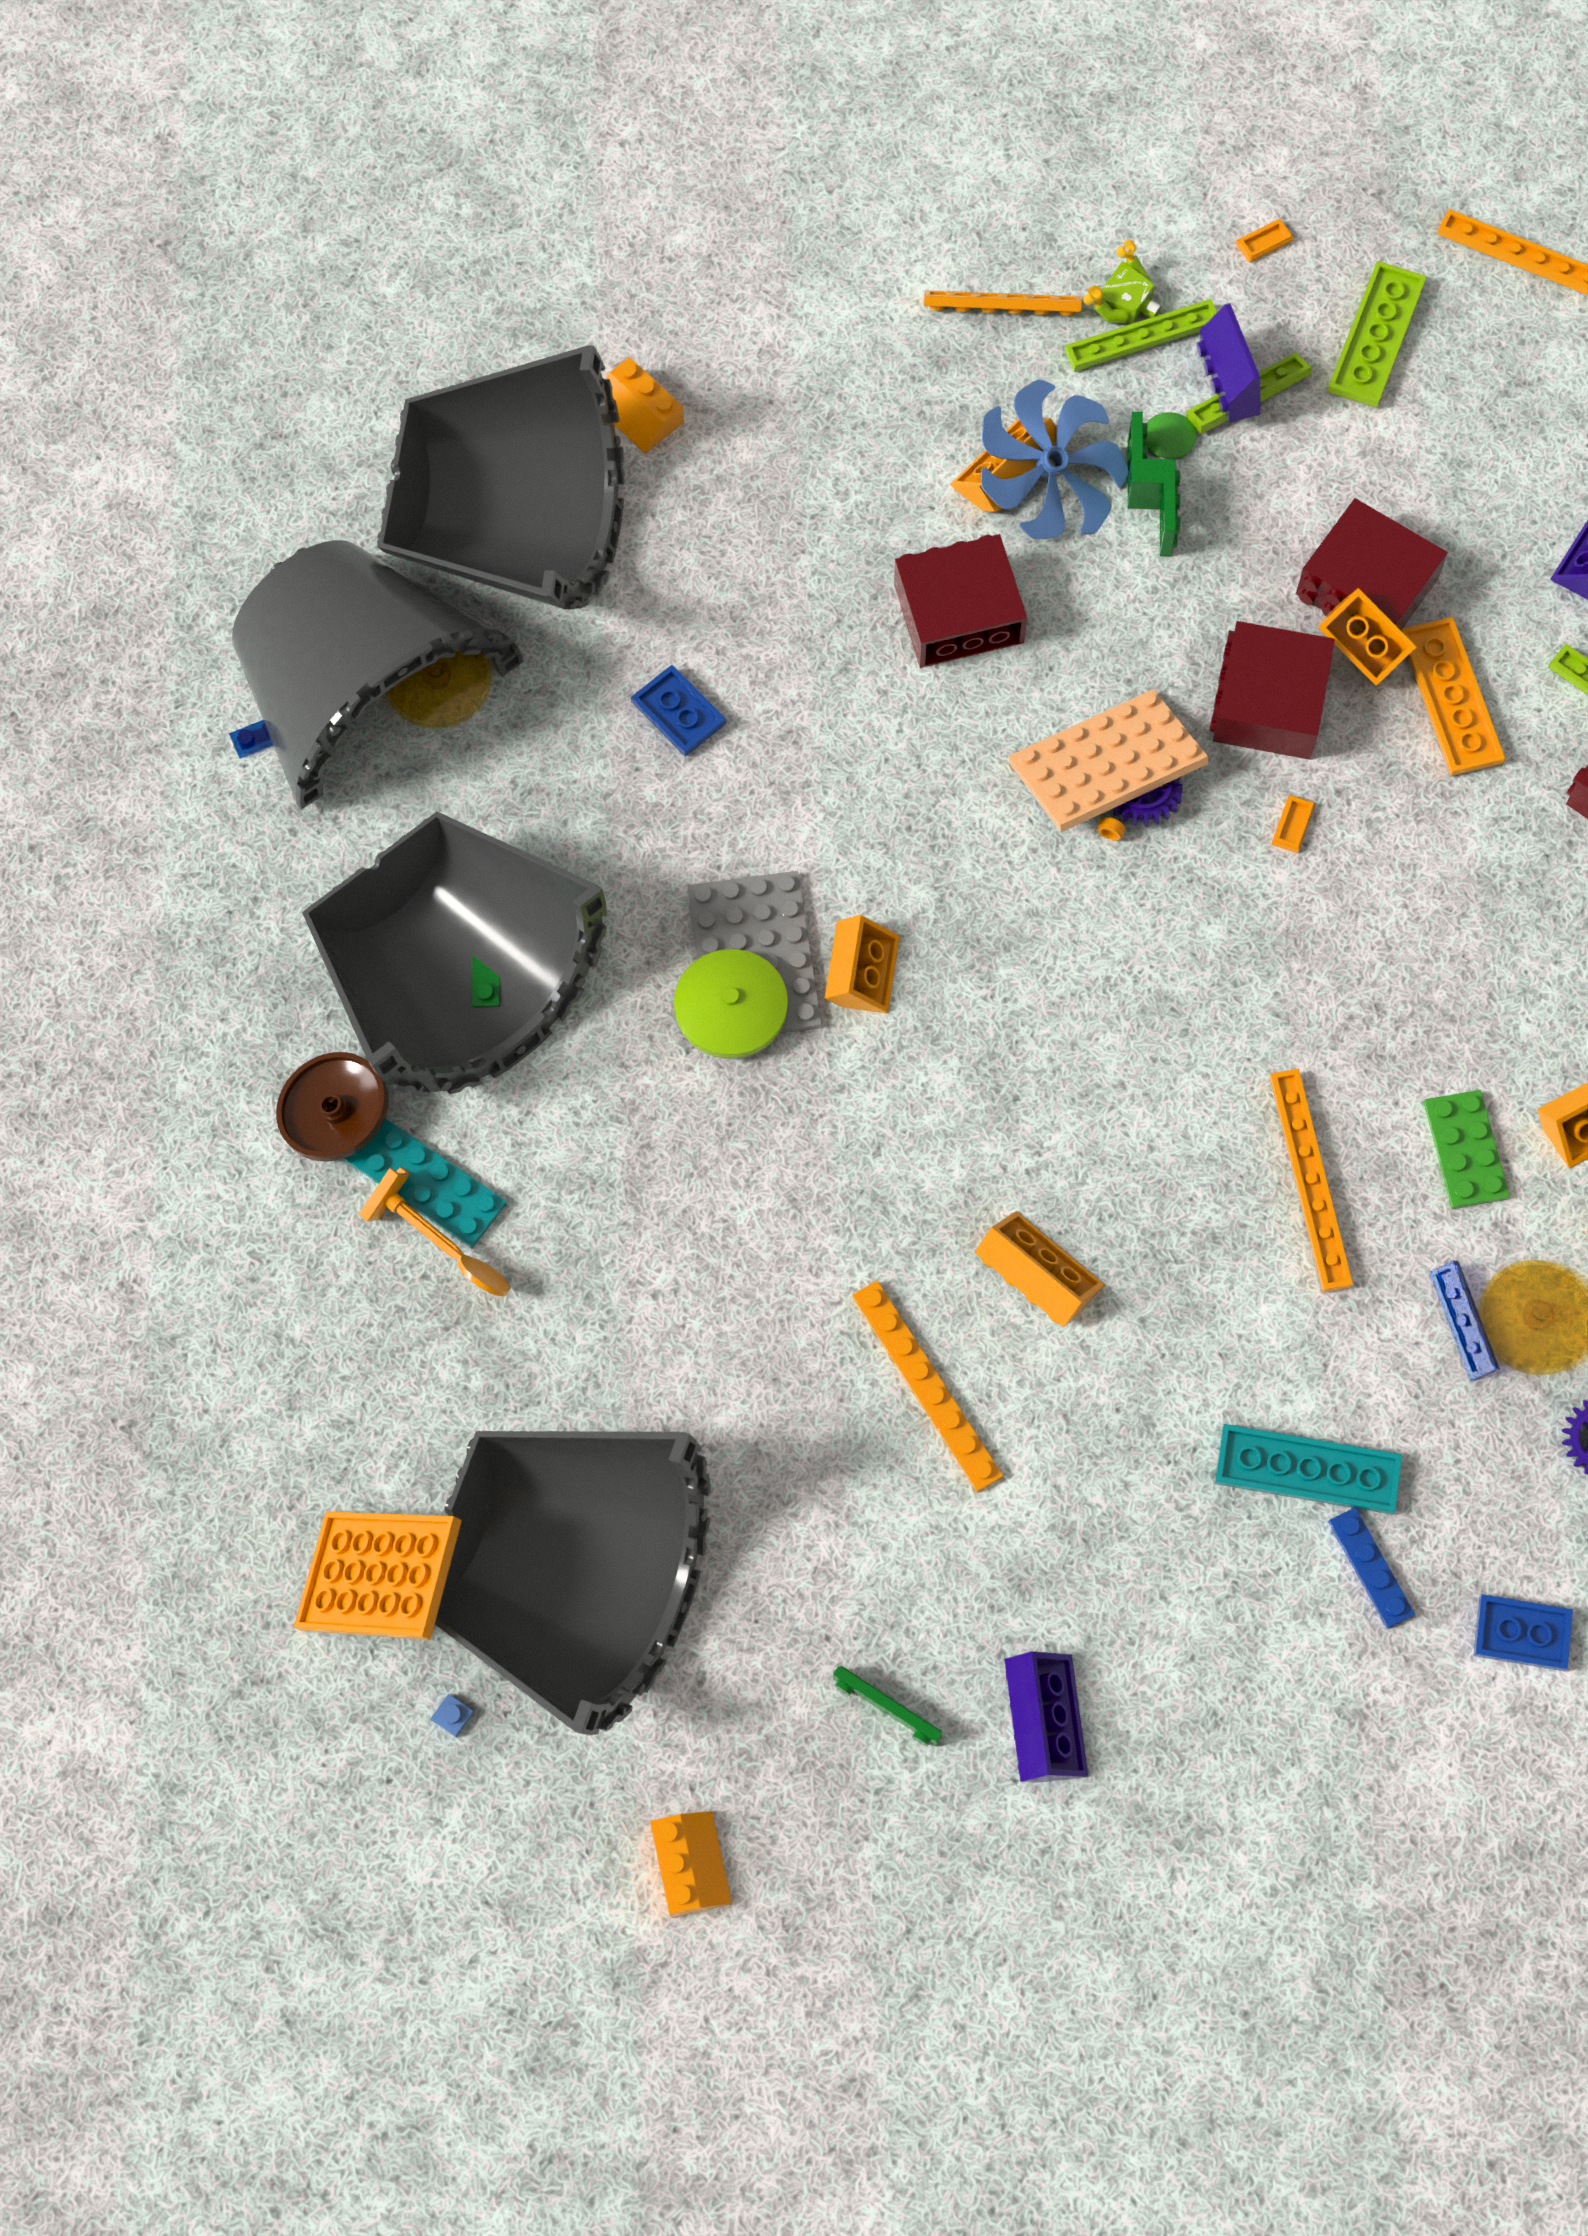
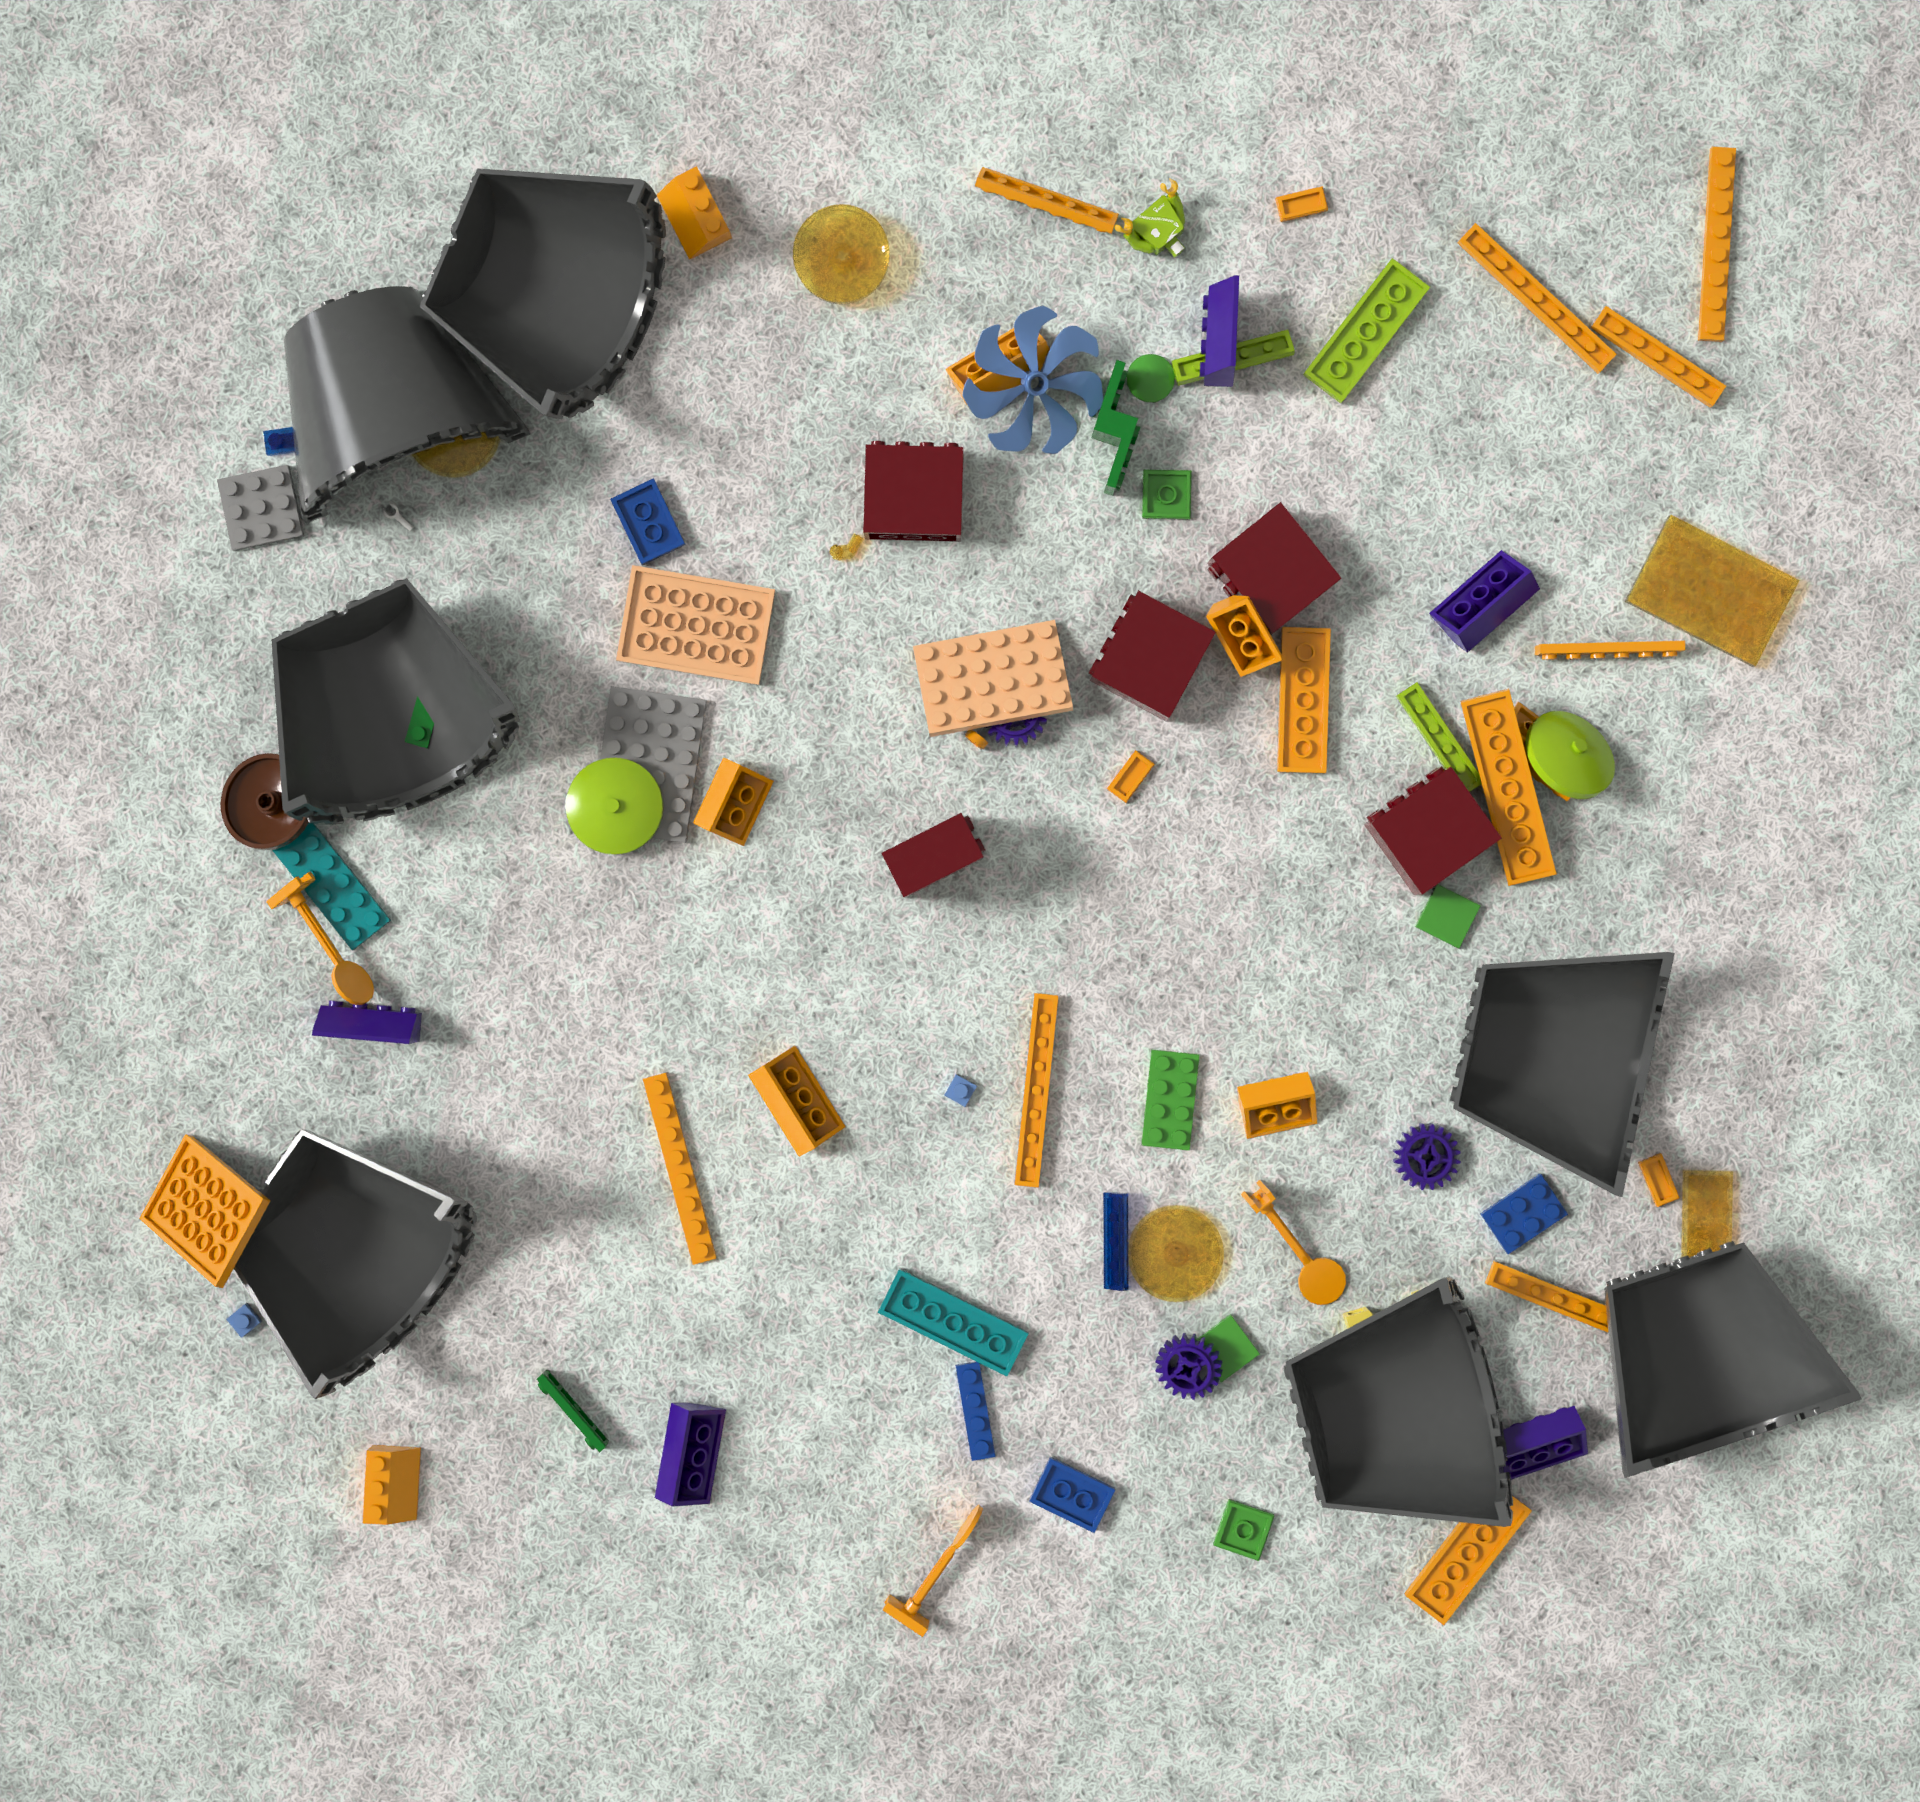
camera: 15 degrees right, 20 degrees up
(245, 811) = (260, 507): none -> light grey plate
(400, 778) = (397, 516): none -> white hand
(514, 1319) = (368, 1023): none -> dark purple slope
(763, 798) = (695, 625): none -> light nougat plate
(806, 401) = (841, 254): none -> clear yellow dish
(905, 683) = (846, 551): none -> clear yellow arm
(1109, 943) = (933, 854): none -> dark red brick
(1139, 335) = (1159, 271): lime plate -> none
(1223, 1206) = (960, 1090): none -> medium blue plate
(1227, 539) = (1166, 494): none -> bright green tile
(1378, 1834) = (908, 1612): none -> light orange piece

